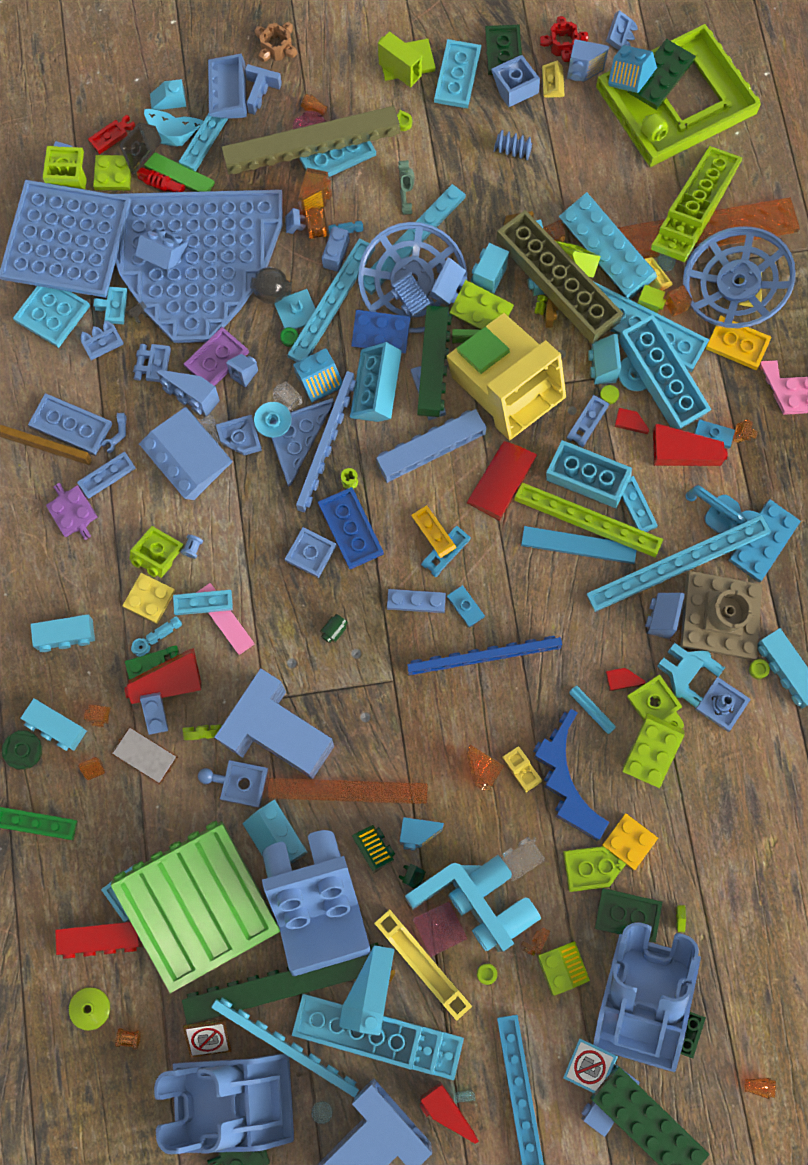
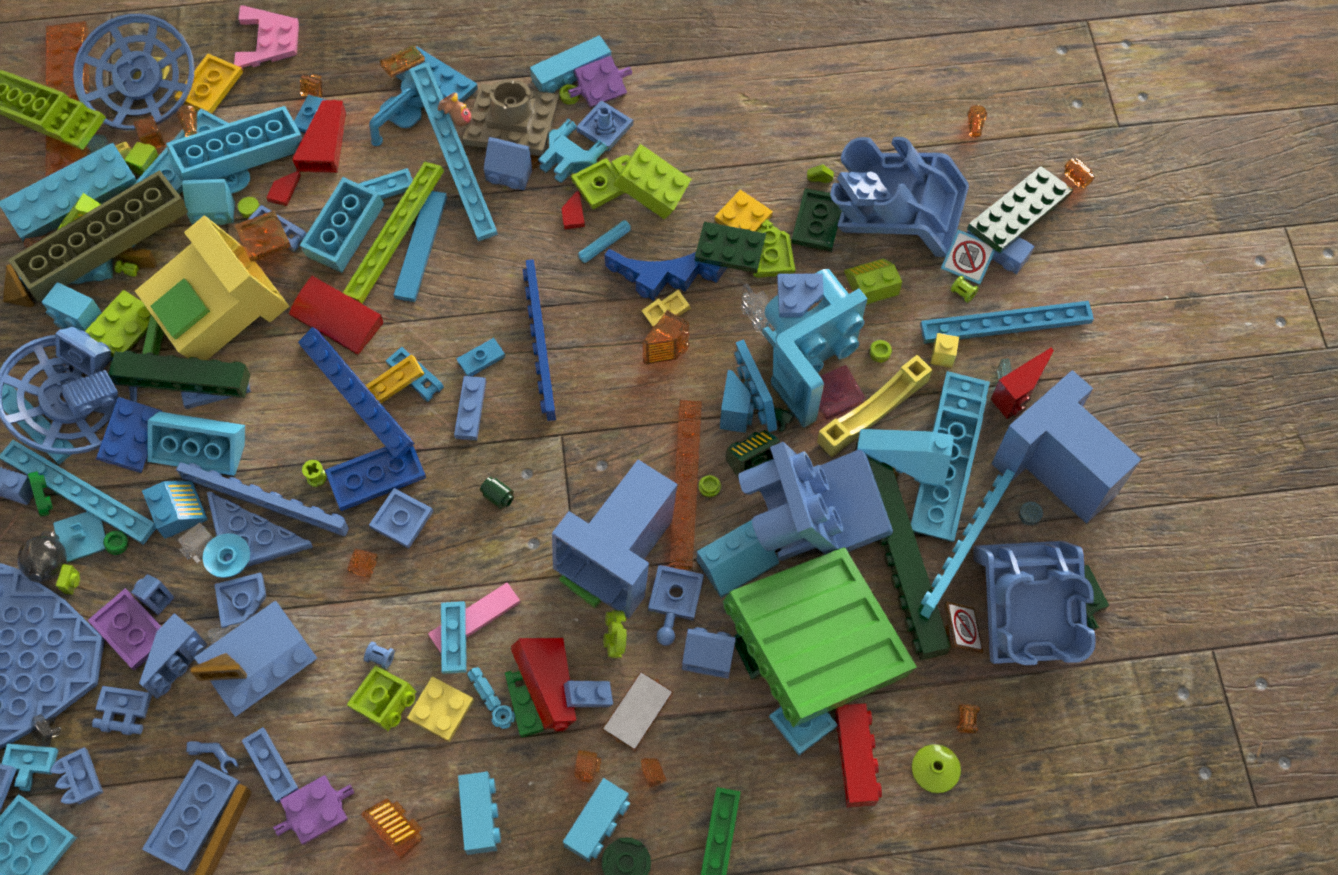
camera: 90 degrees left, 10 degrees down
(51, 568) = (393, 827): none -> clear orange slope
(172, 427) = (219, 668): none -> pearl gold slope
(186, 811) = (708, 652): none -> medium blue slope
(256, 307) = (68, 579): none -> lime plate
(272, 526) = (362, 563): none -> clear orange tile
(330, 271) = (38, 483): none -> green plate
(344, 811) = (709, 486): none -> lime plate
(423, 503) = (356, 393): none -> blue plate
(426, 850) = (756, 386): none -> dark azure plate
(431, 445) = (285, 386): medium blue brick -> none
(485, 1036) = (944, 350): none -> light yellow brick
(506, 884) = (798, 293): none -> medium blue plate
(556, 1061) = (964, 289): none -> lime bush
(572, 408) = (262, 236): none -> clear orange plate
(583, 826) = (730, 247): none -> dark green plate
(645, 958) = (863, 188): none -> medium blue plate
(691, 330) = (188, 118): none -> clear orange cone
(718, 563) = (458, 111): none -> nougat animal
(772, 697) = (600, 81): none -> medium lavender plate
(773, 508) = (402, 61): none -> clear orange plate

